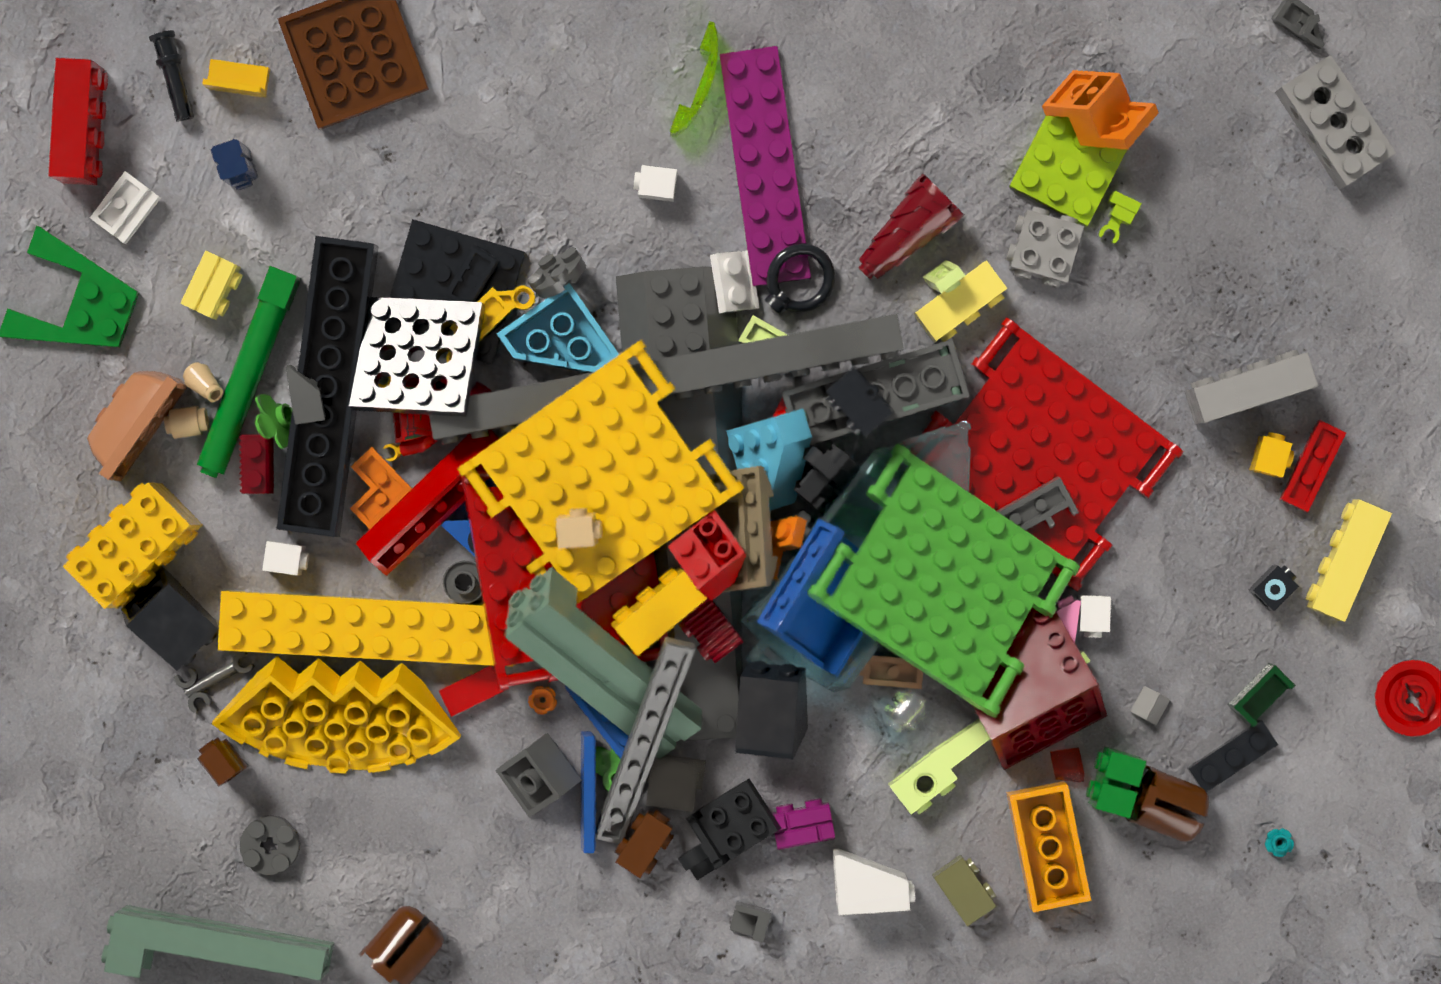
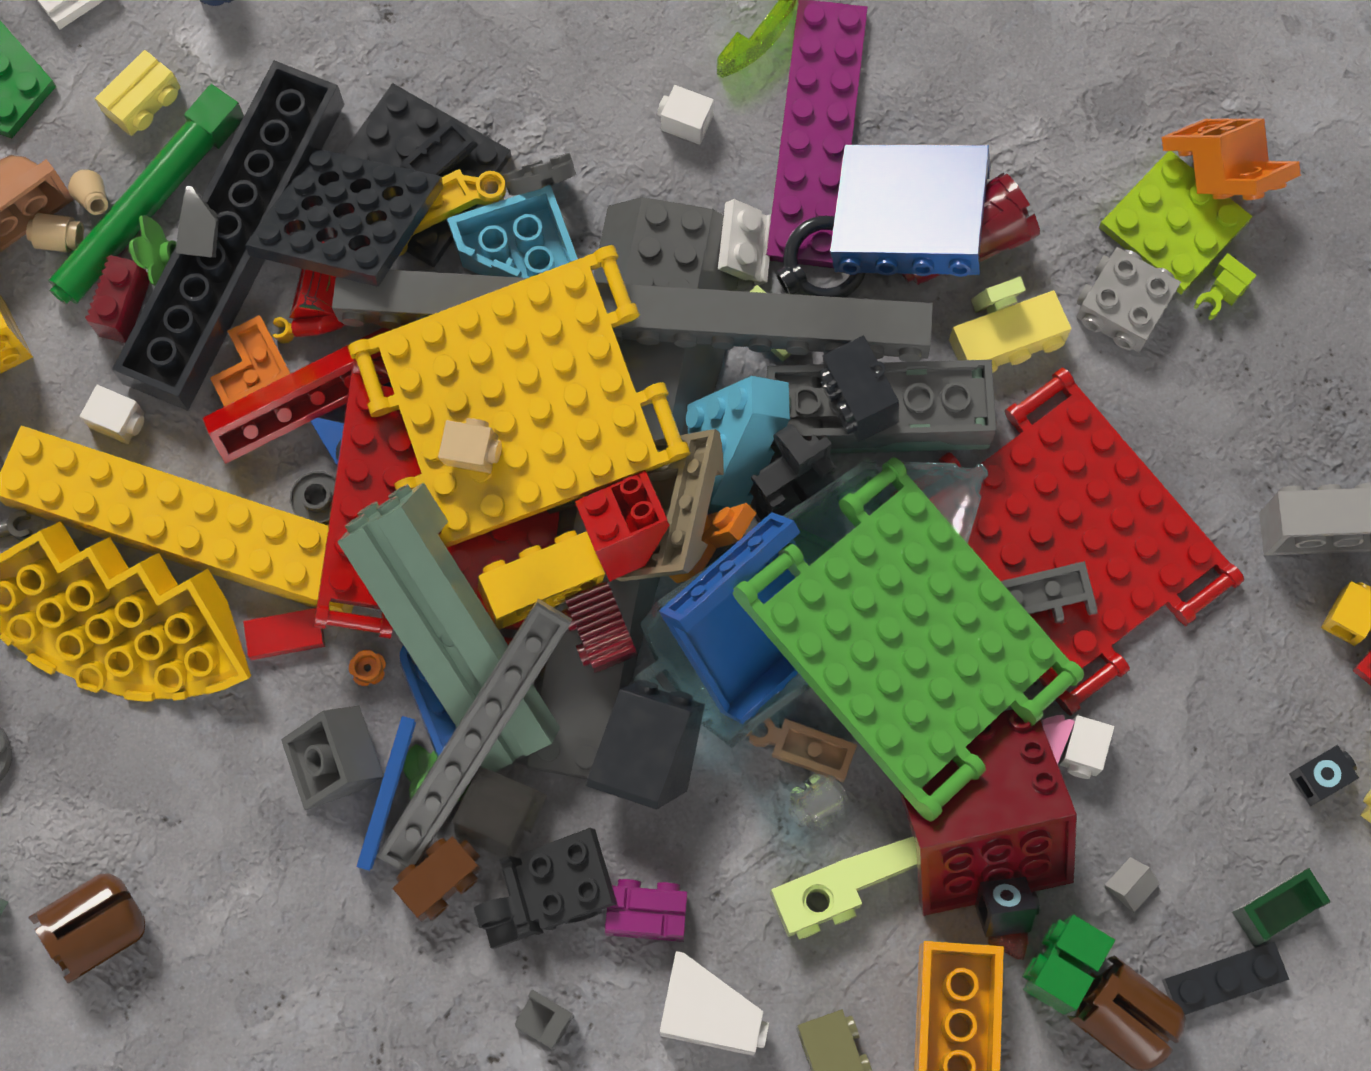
camera: 15 degrees right, 15 degrees down
(858, 224) = (910, 209): none -> panel
(1063, 750) = (1006, 906): none -> black brick

